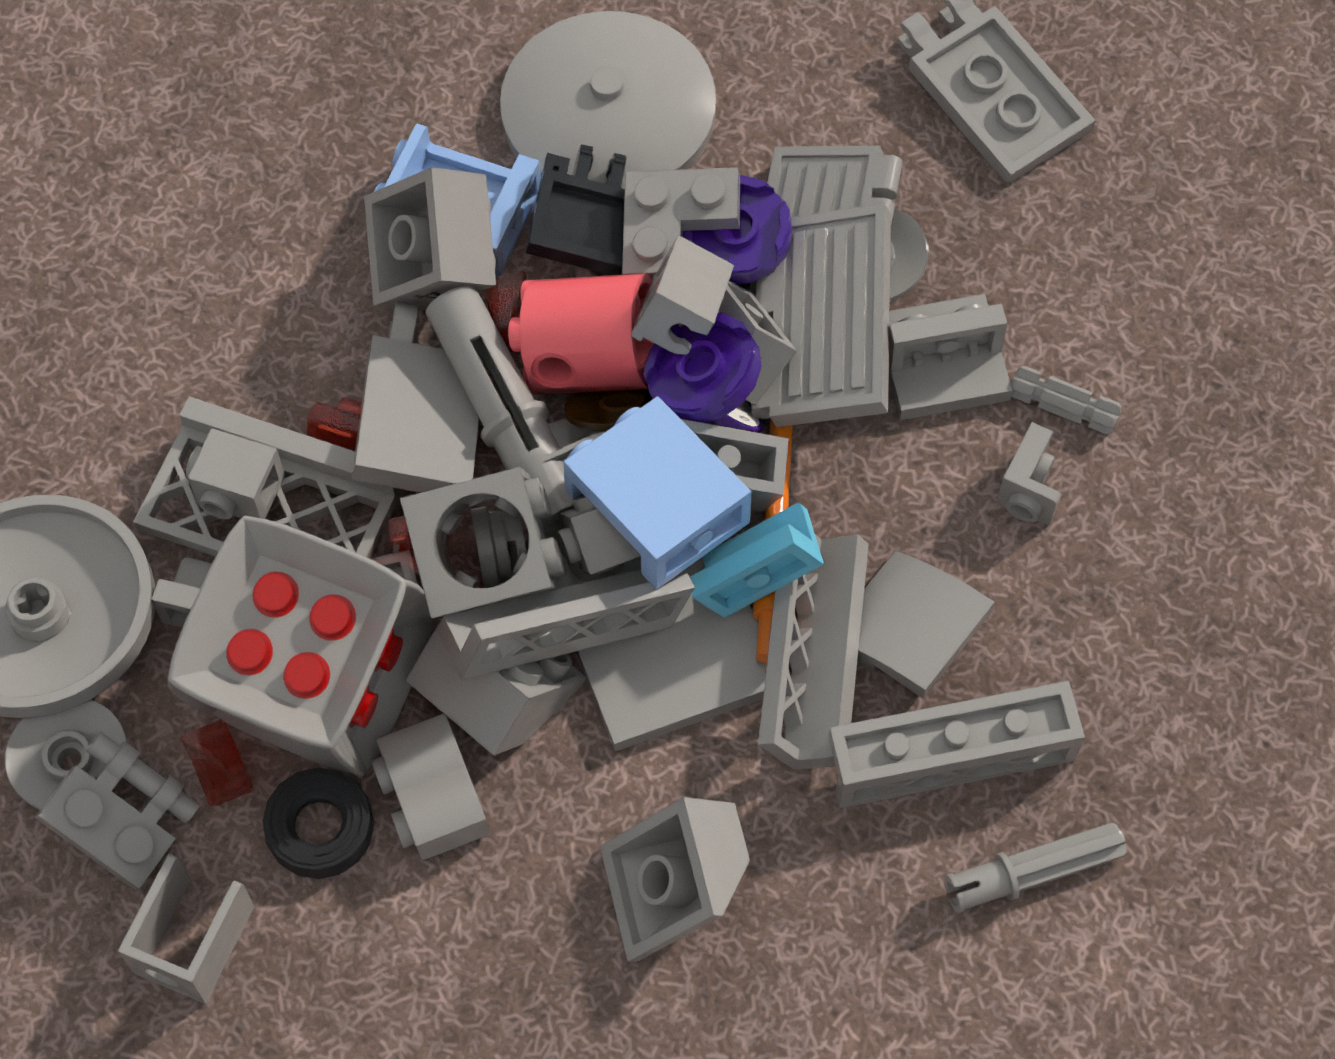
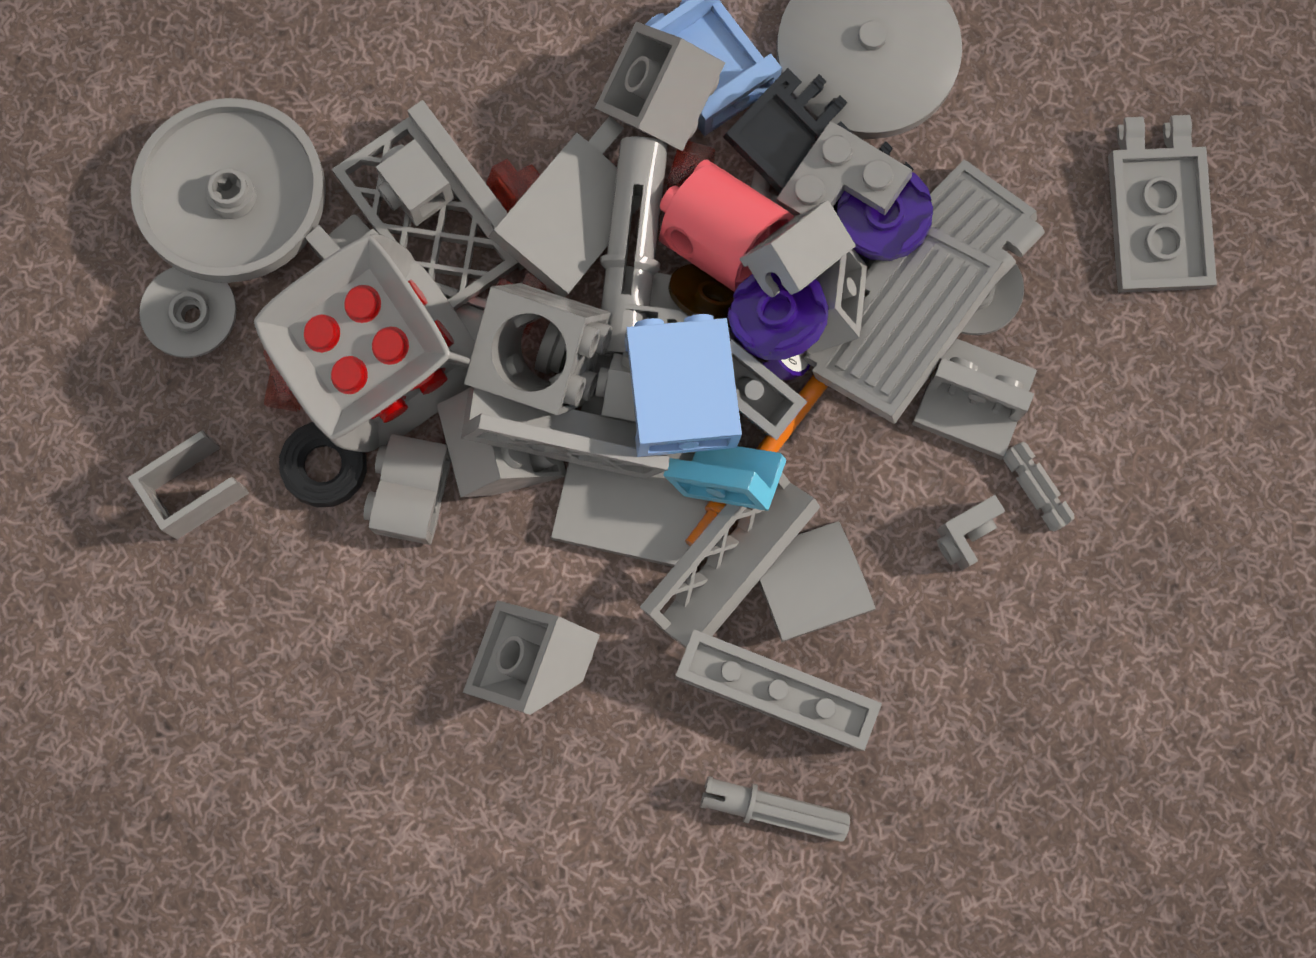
camera: 30 degrees right, 15 degrees up
(108, 827) = (181, 379): light grey plate -> none

